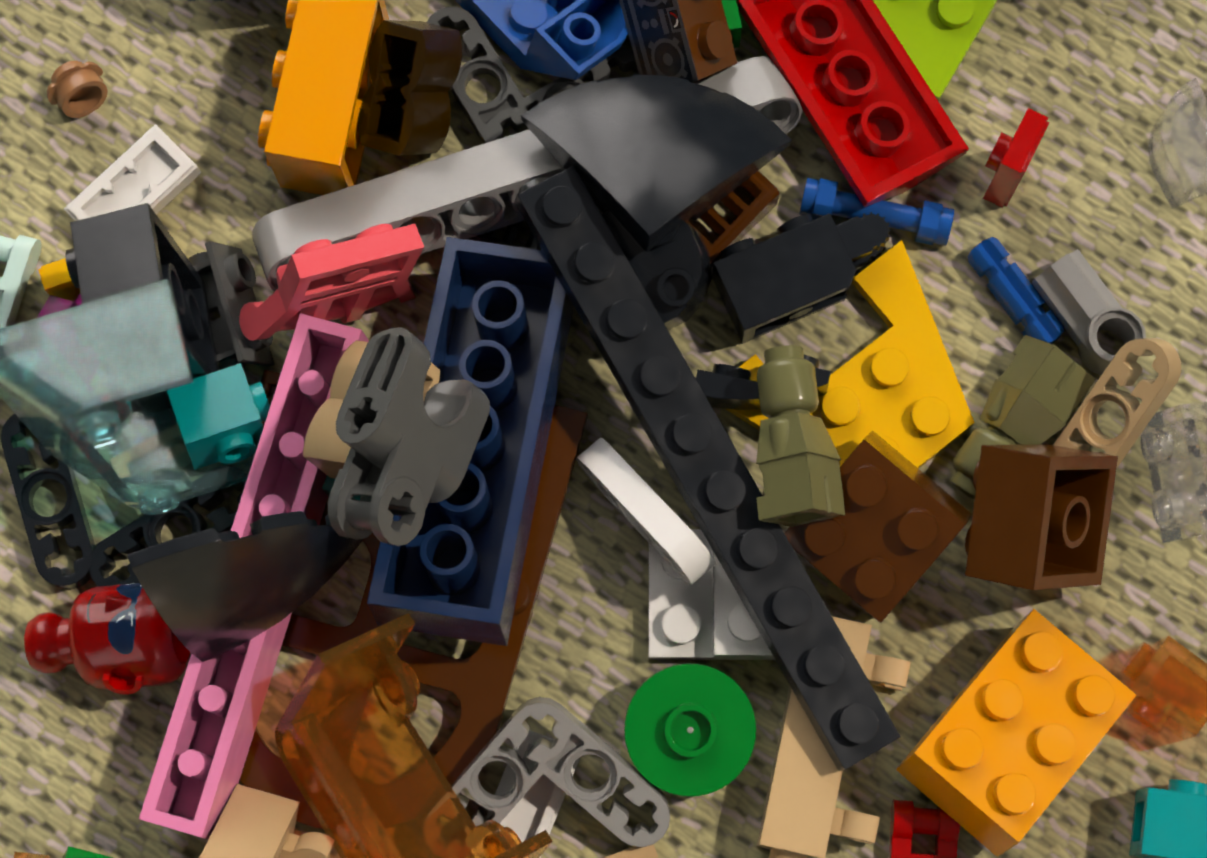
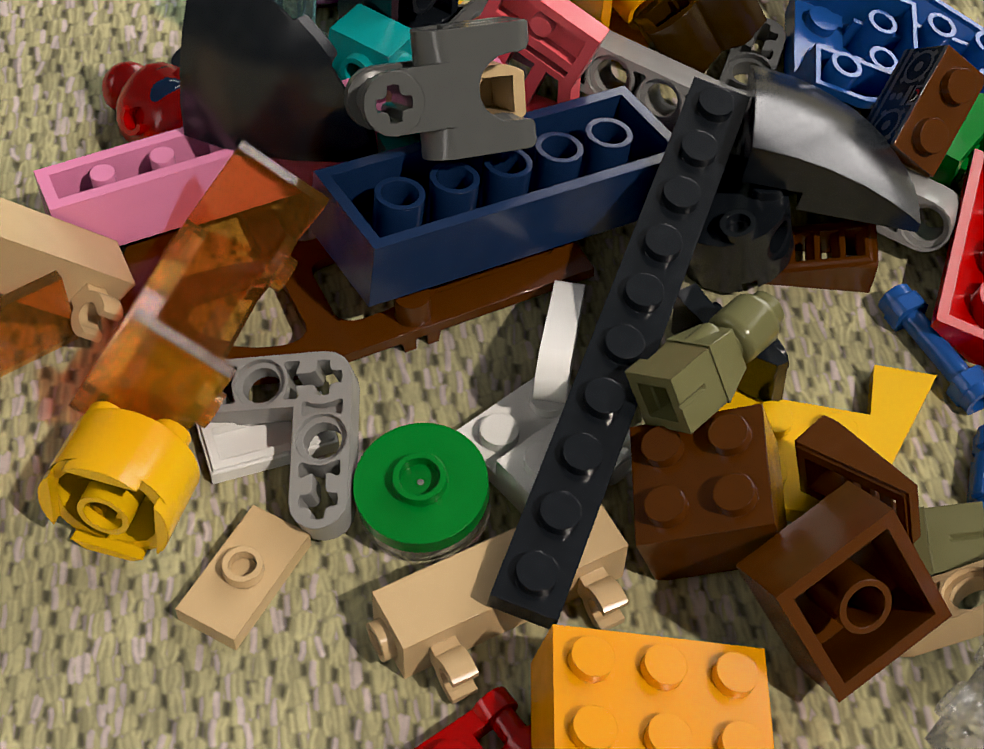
camera: 45 degrees right, 25 degrees down
(795, 271) = (845, 323): black hinge -> none
(947, 419) = (833, 455): none -> reddish brown slope

